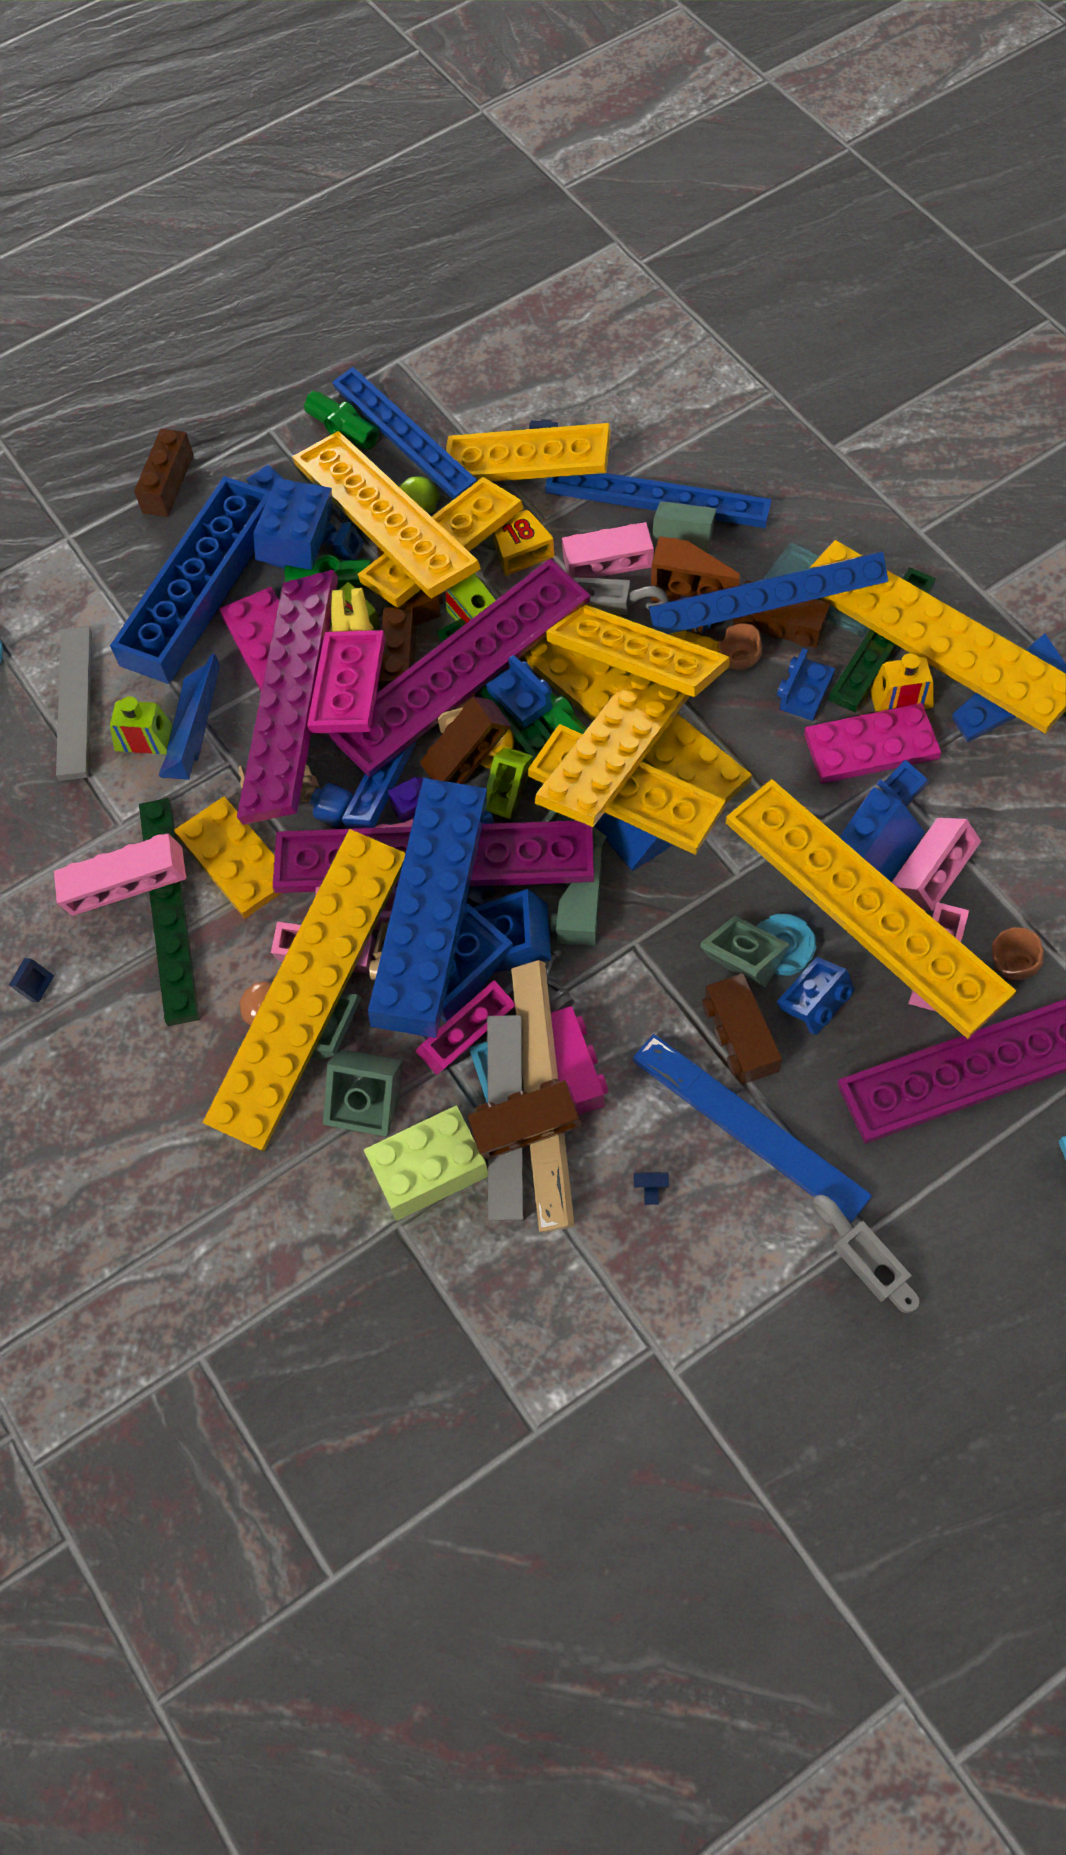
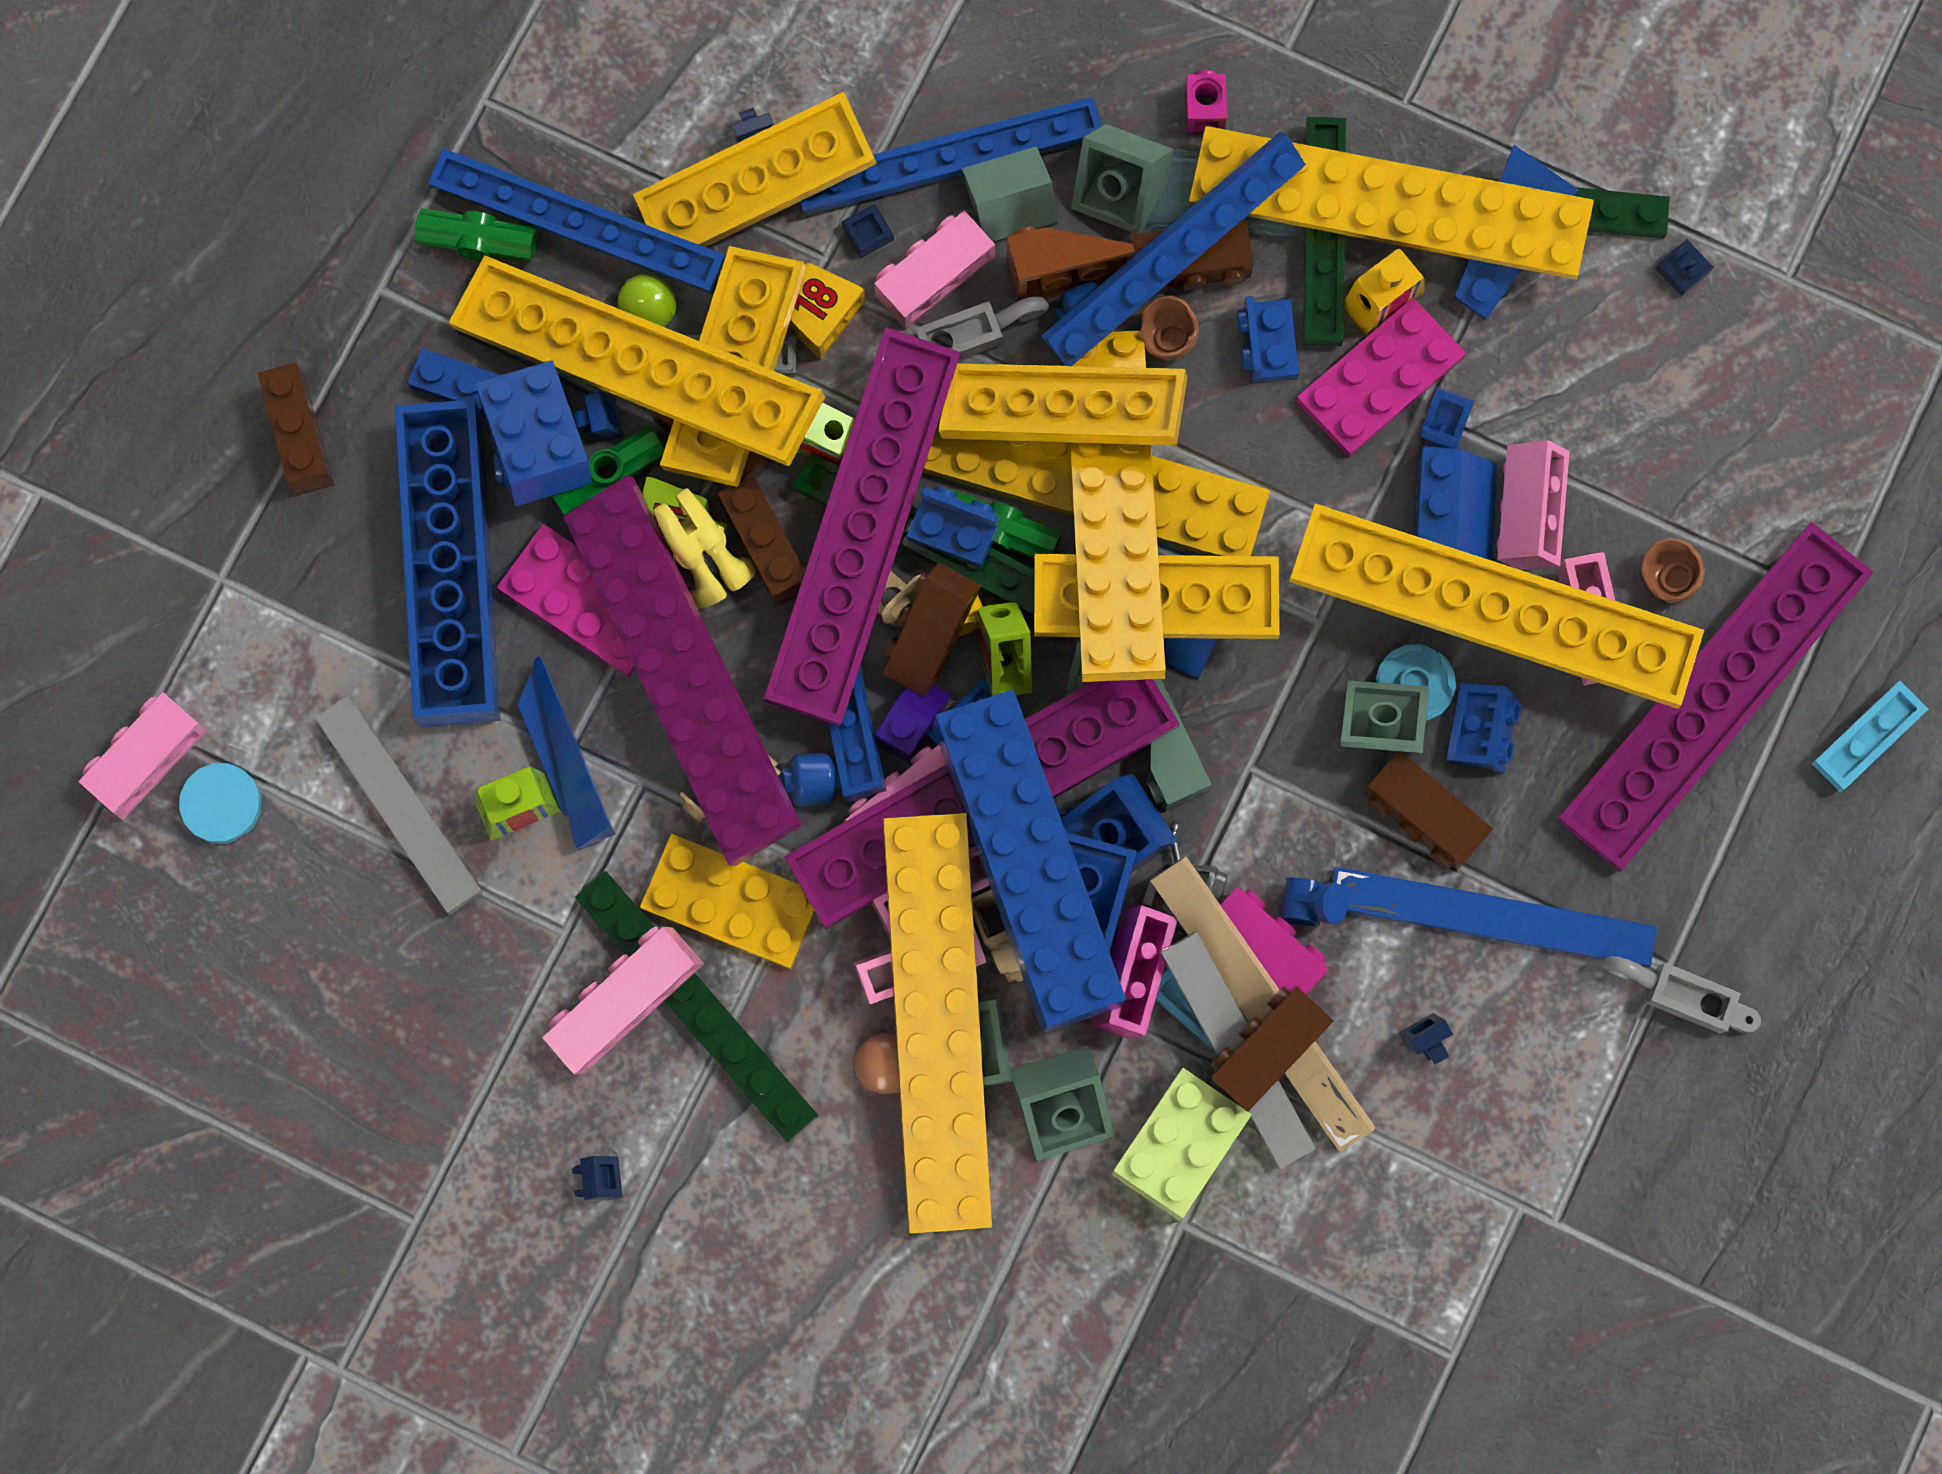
camera: 35 degrees left, 15 degrees up
(346, 682) = (749, 624): dark pink plate -> none
(580, 517) = (867, 231): none -> dark blue tile
(621, 1046) = (1310, 901): none -> blue piece
(760, 547) = (1120, 177): none -> sand green slope
(845, 528) = (1199, 115): none -> dark pink brick

